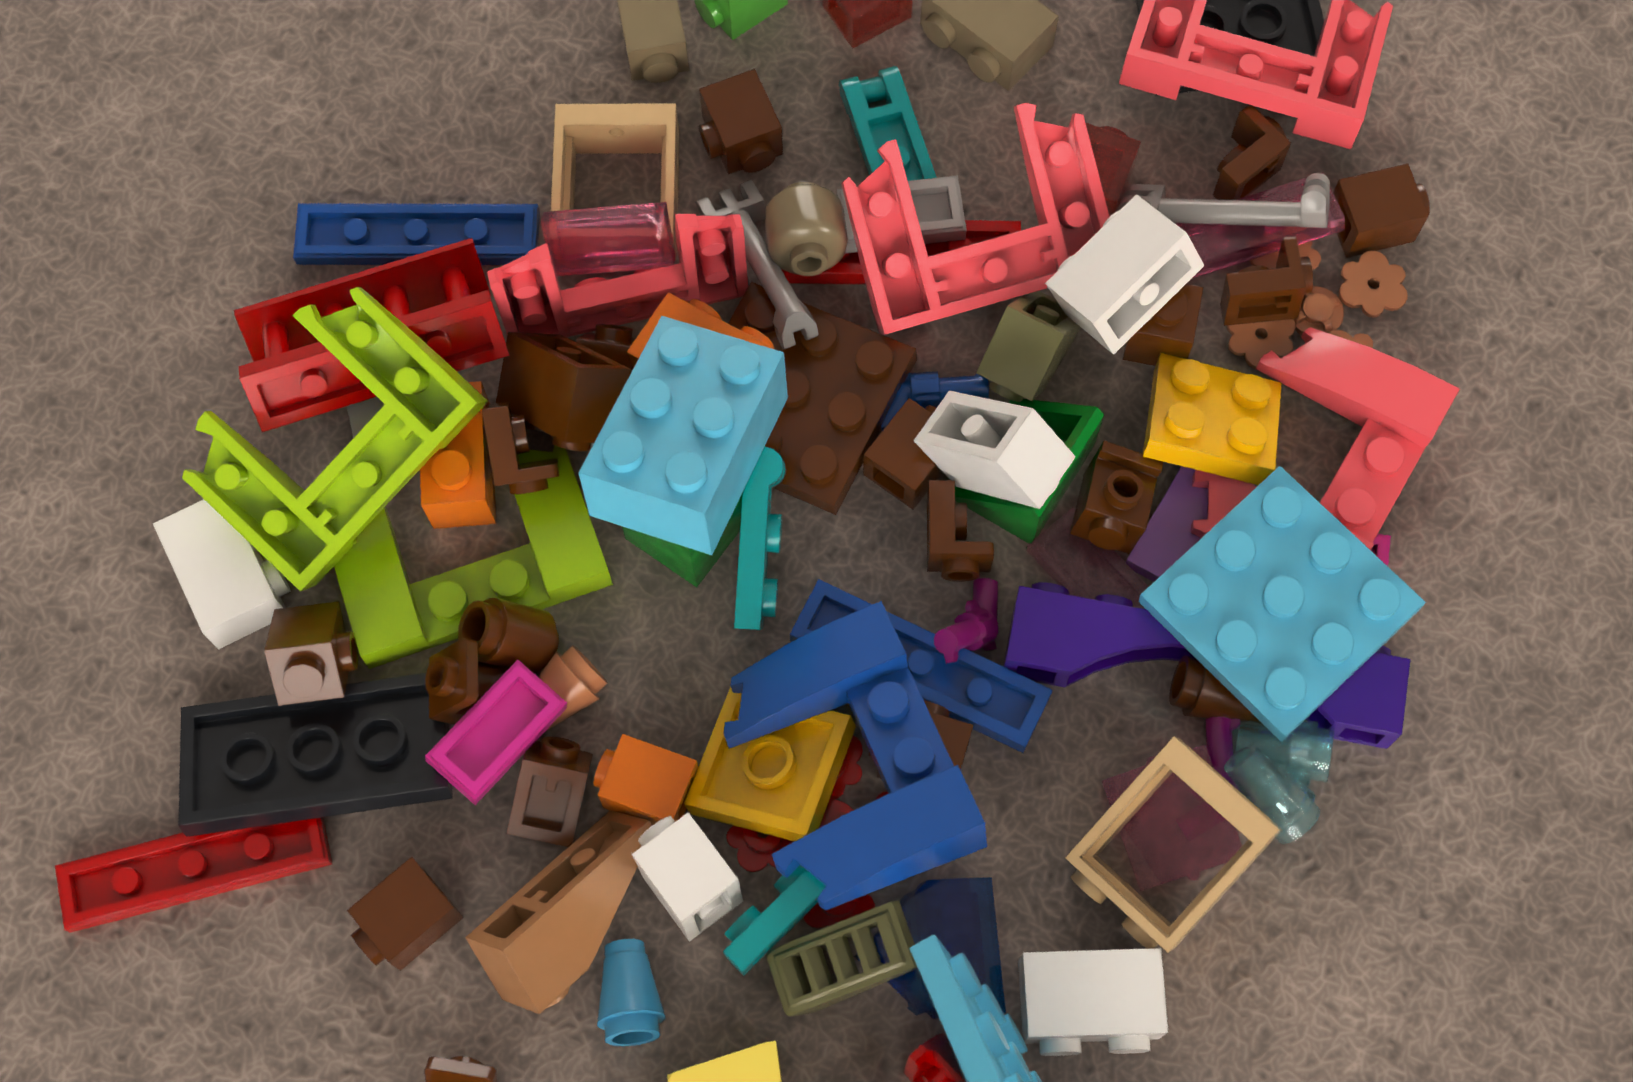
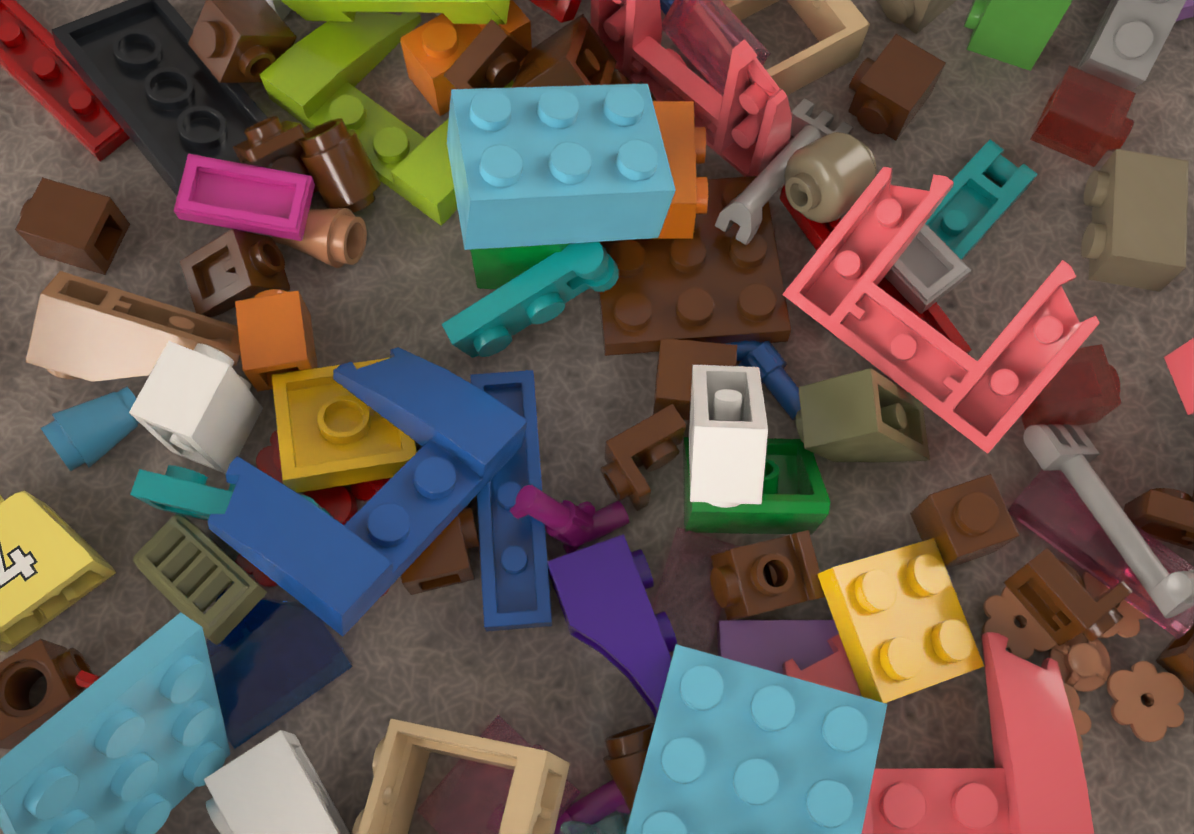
camera: 55 degrees right, 0 degrees up
(1125, 273) = (976, 452): white brick -> none

